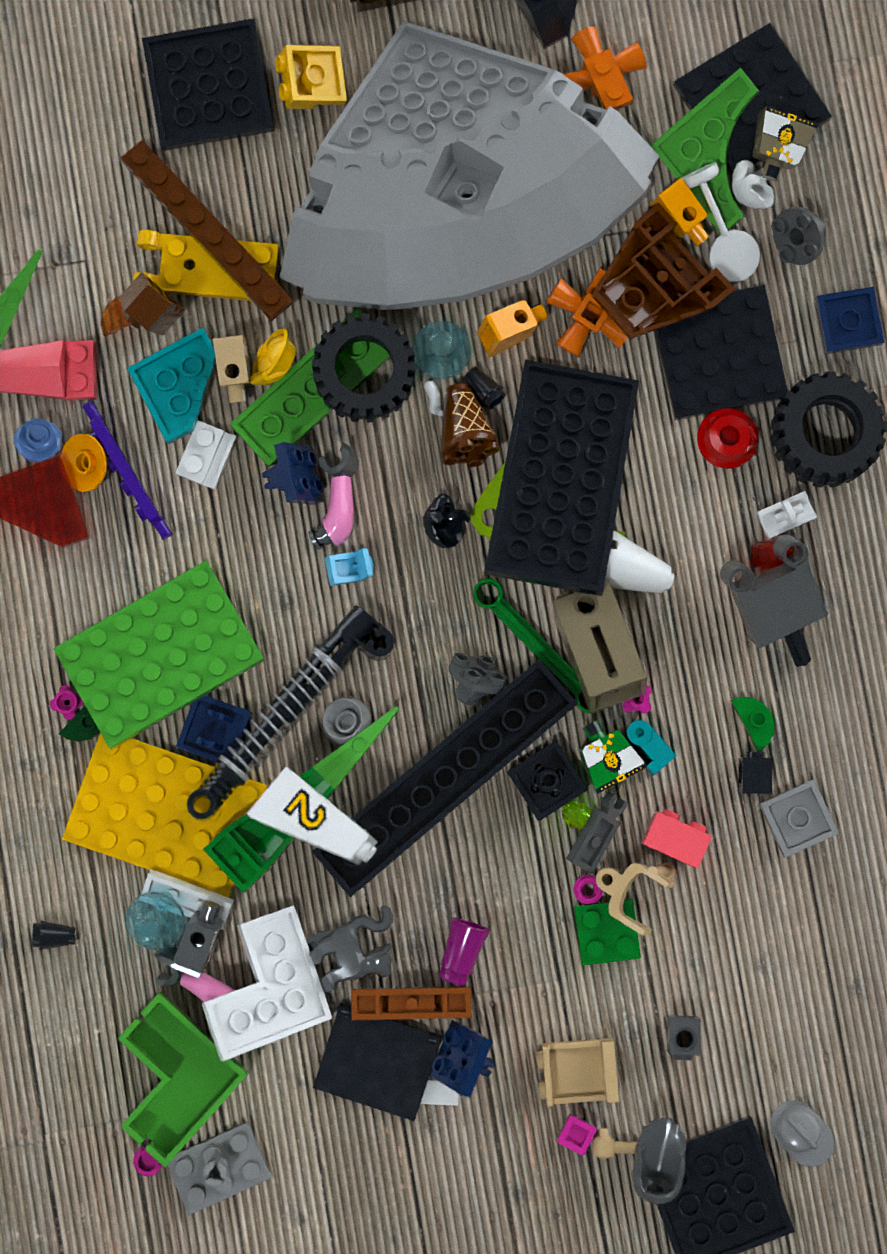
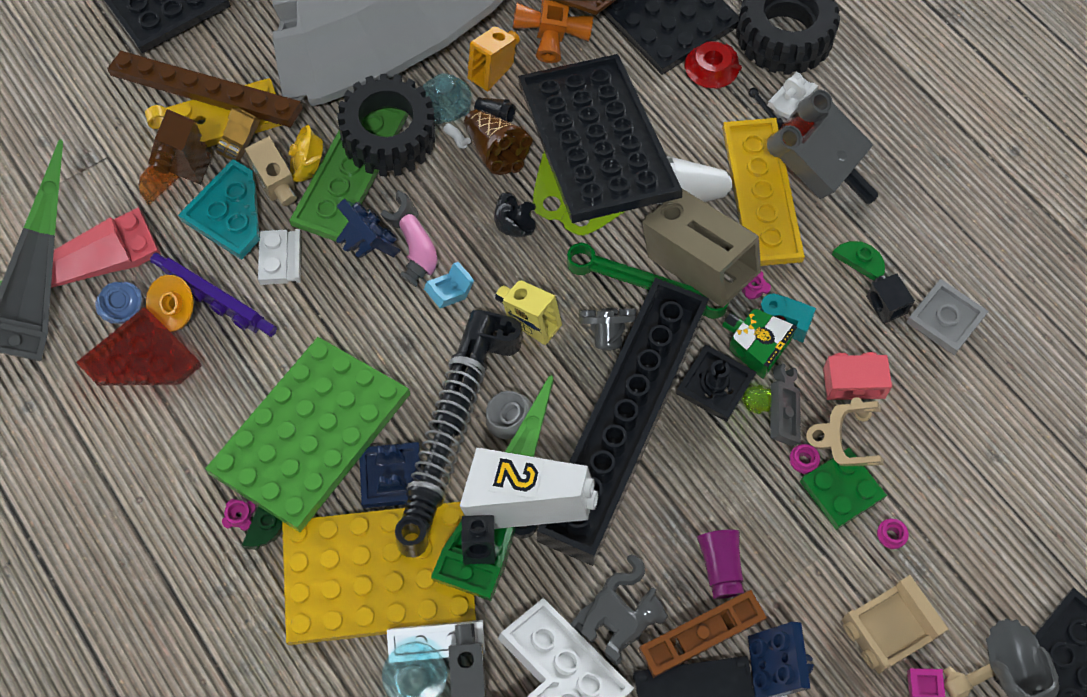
camera: 25 degrees left, 20 degrees down
(218, 303) = (237, 134): none -> pearl gold leg
(255, 841) = (478, 539): none -> black brick
(413, 636) = (533, 308): none -> light yellow torso
(630, 1002) = (896, 526): none -> dark pink plate
(678, 1023) = (973, 534): dark grey brick -> none
(697, 605) = (763, 190): none -> yellow plate
(754, 486) = (754, 93): none -> black hinge

